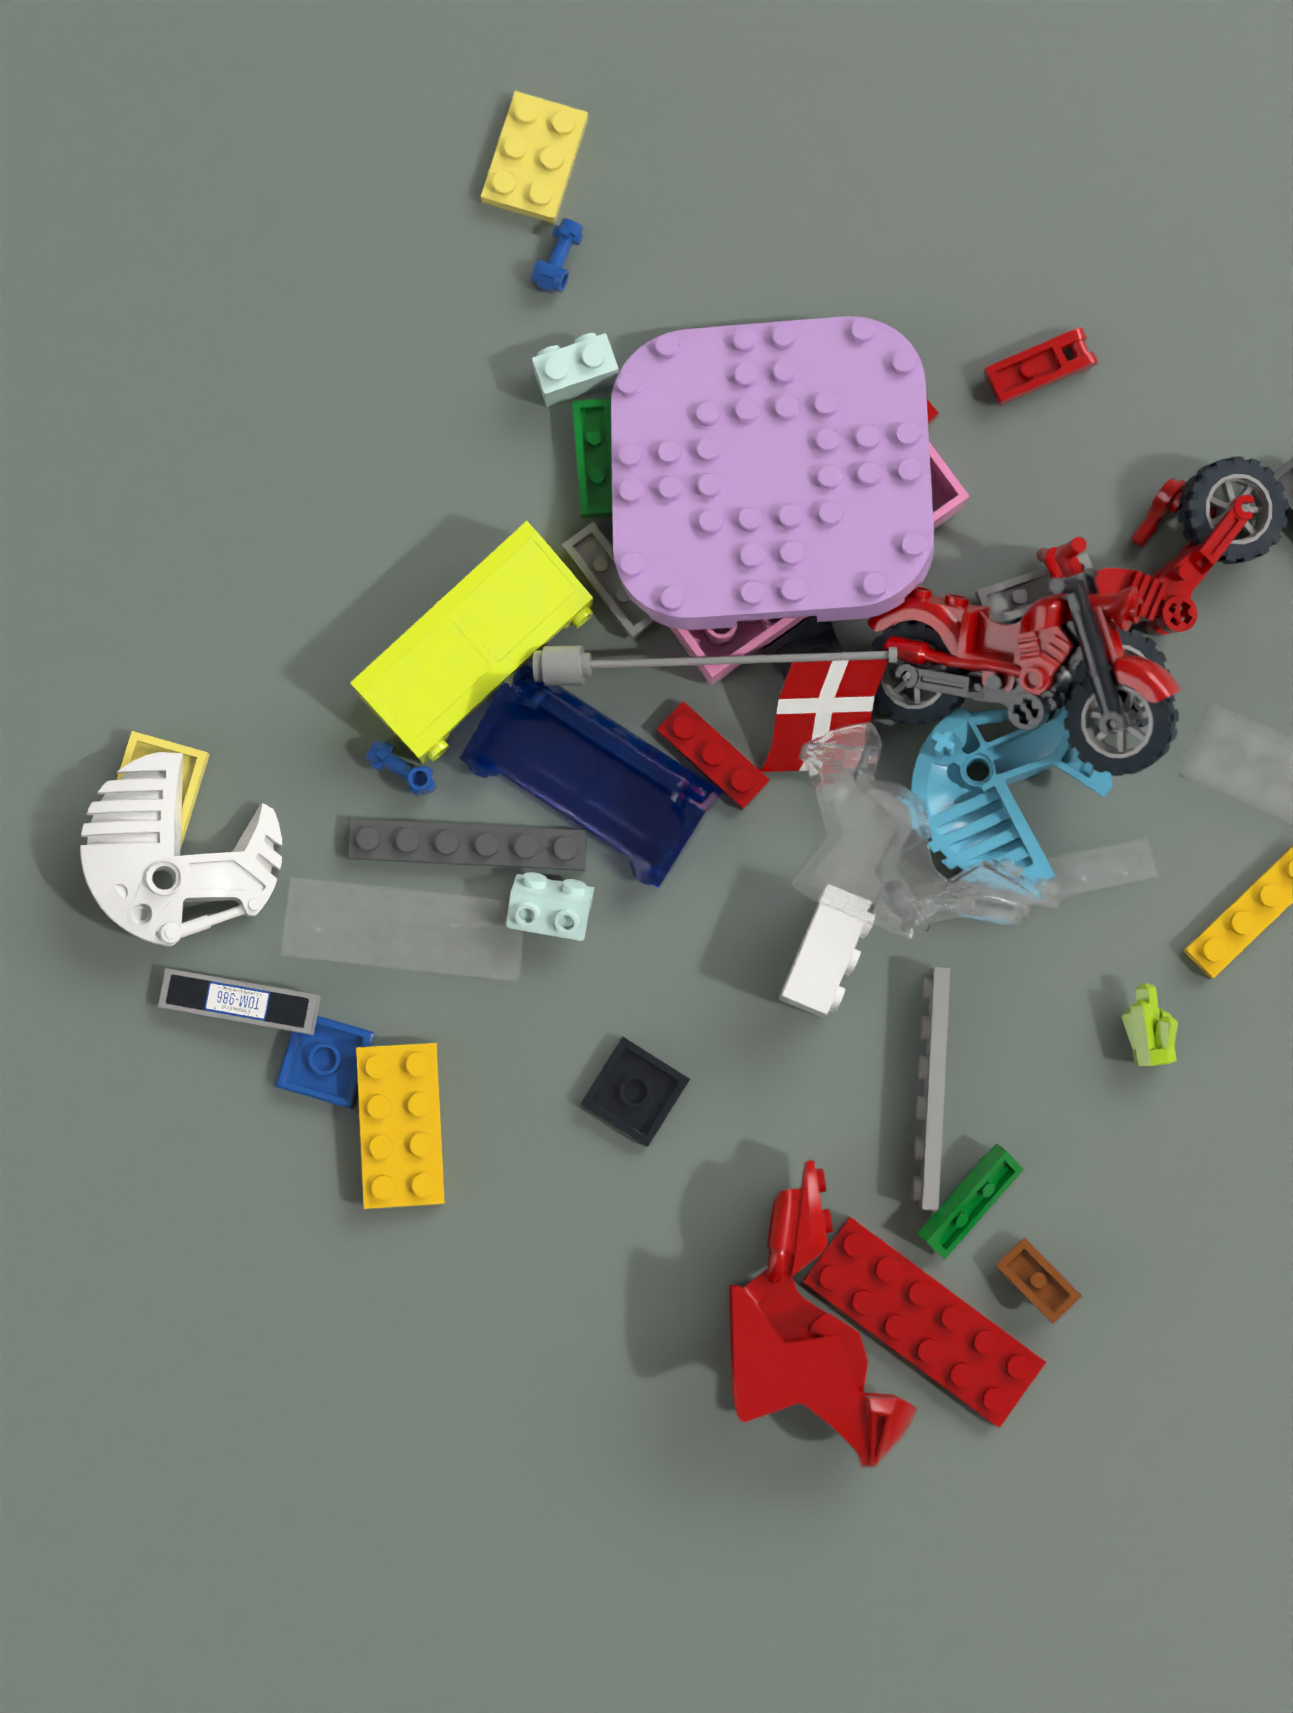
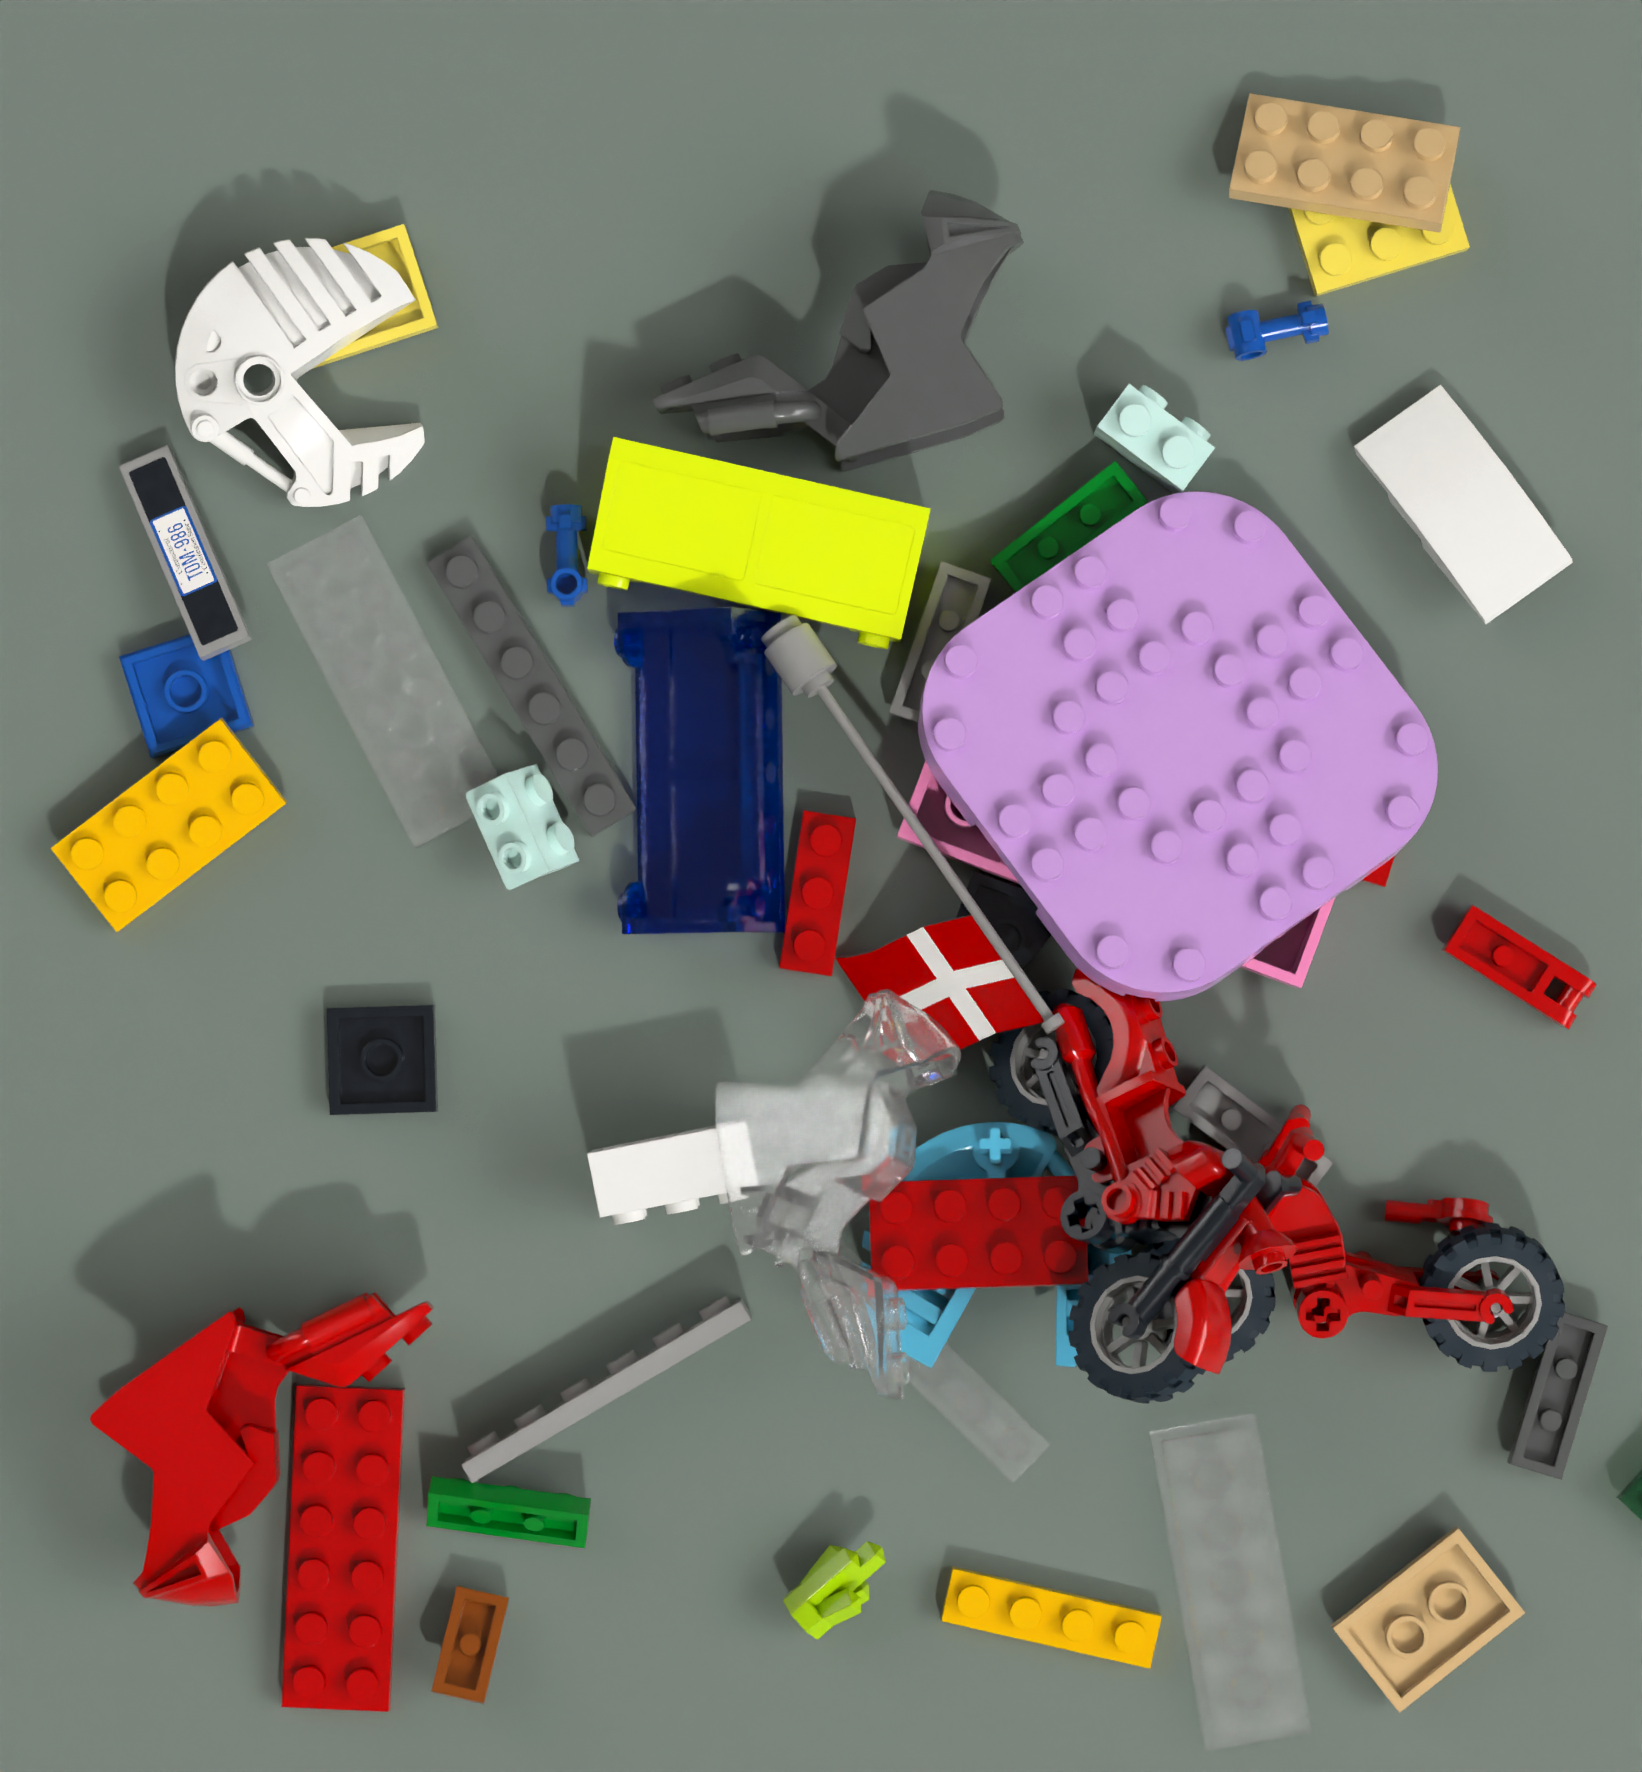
camera: 55 degrees right, 5 degrees up
(429, 486) = (900, 361): none -> dark grey piece
(487, 148) = (1344, 162): none -> tan plate
(739, 215) = (1463, 504): none -> white slope
(991, 789) = (977, 1234): none -> red plate

